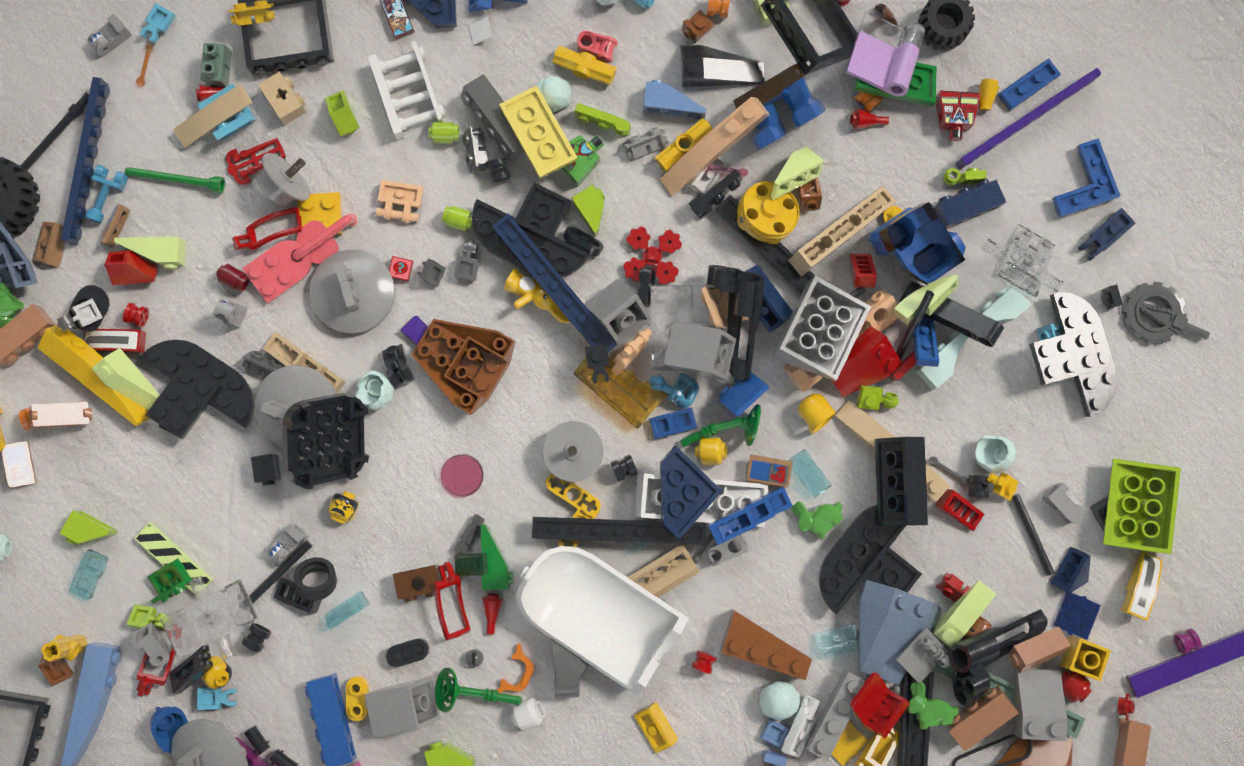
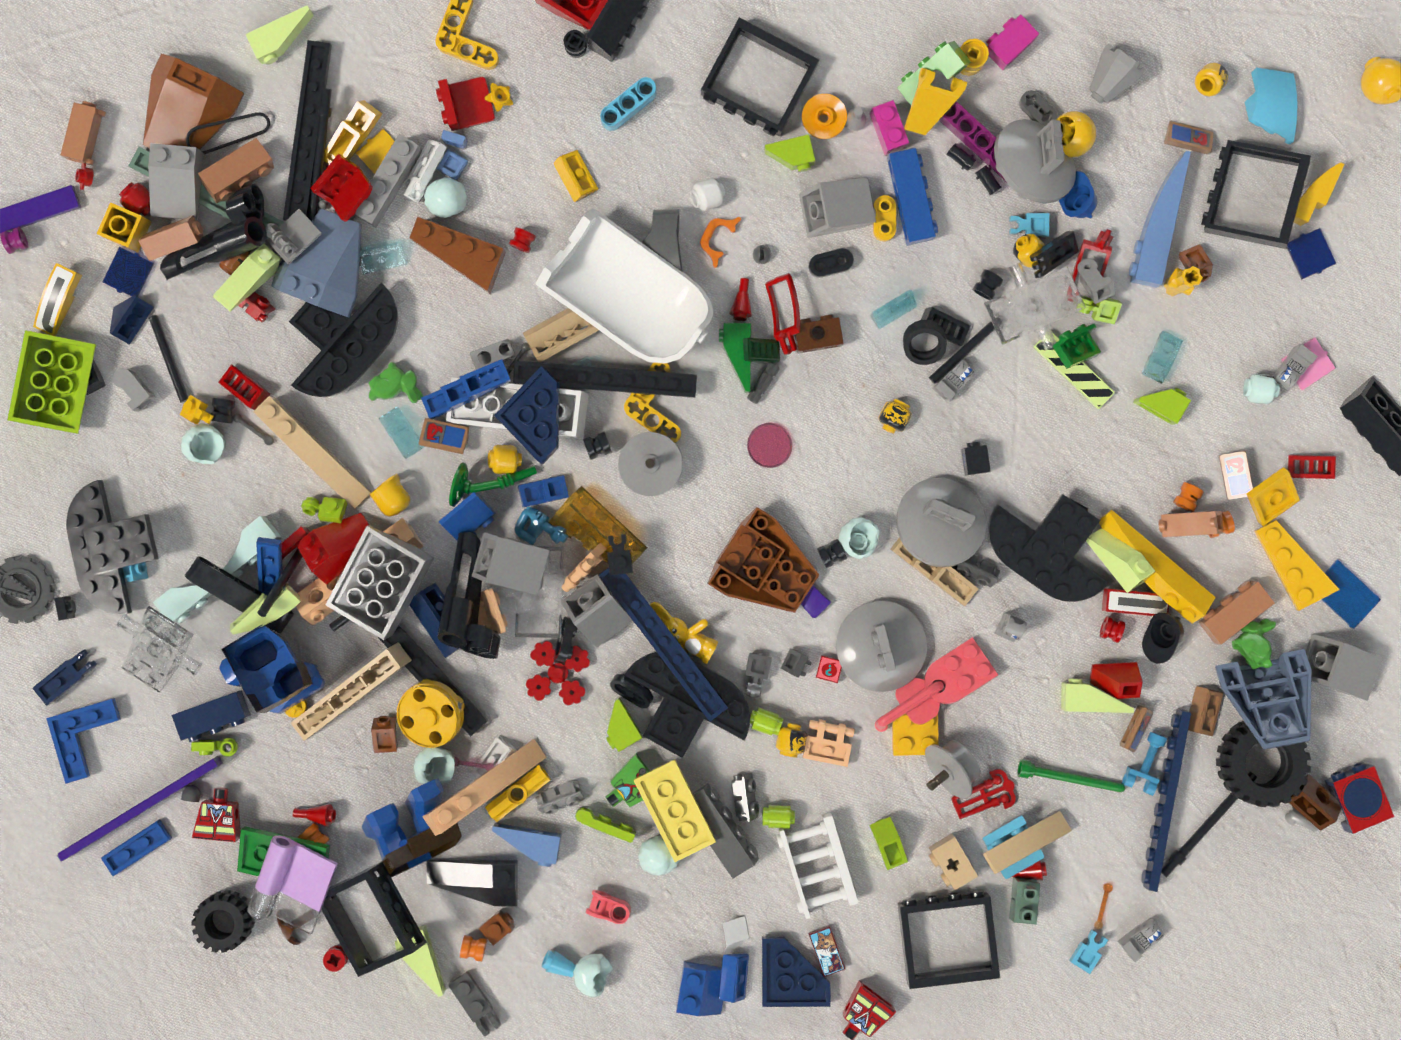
camera: 175 degrees left, 5 degrees up
(63, 441) = (1188, 497): none -> orange wheel
(84, 314) = (1164, 630): plate -> none
(232, 278) = (1009, 665): dark red brick -> none
(243, 13) = (974, 959): yellow hinge -> none
(251, 235) = (988, 703): red sword -> none
(324, 439) = (910, 485): black tile -> none
(394, 358) = (837, 571): black plate -> none
(433, 201) = (791, 740): none -> yellow head
(452, 690) = (783, 221): green dish -> none
(498, 169) = (720, 773): black wheel -> none
(584, 65) = (623, 886): yellow piece -> none
(702, 205) = (501, 725): black plate -> none
(762, 165) = (434, 764): none -> light aqua hair
(799, 169) = (392, 760): yellowish green slope -> none
(863, 270) = (333, 635): red slope -> none
(901, 481) = (304, 417): black slope -> none
(931, 711) = (289, 179): bright green animal -> none
(983, 133) = (191, 794): none -> dark grey hinge
(988, 91) = (182, 840): yellow cone -> none

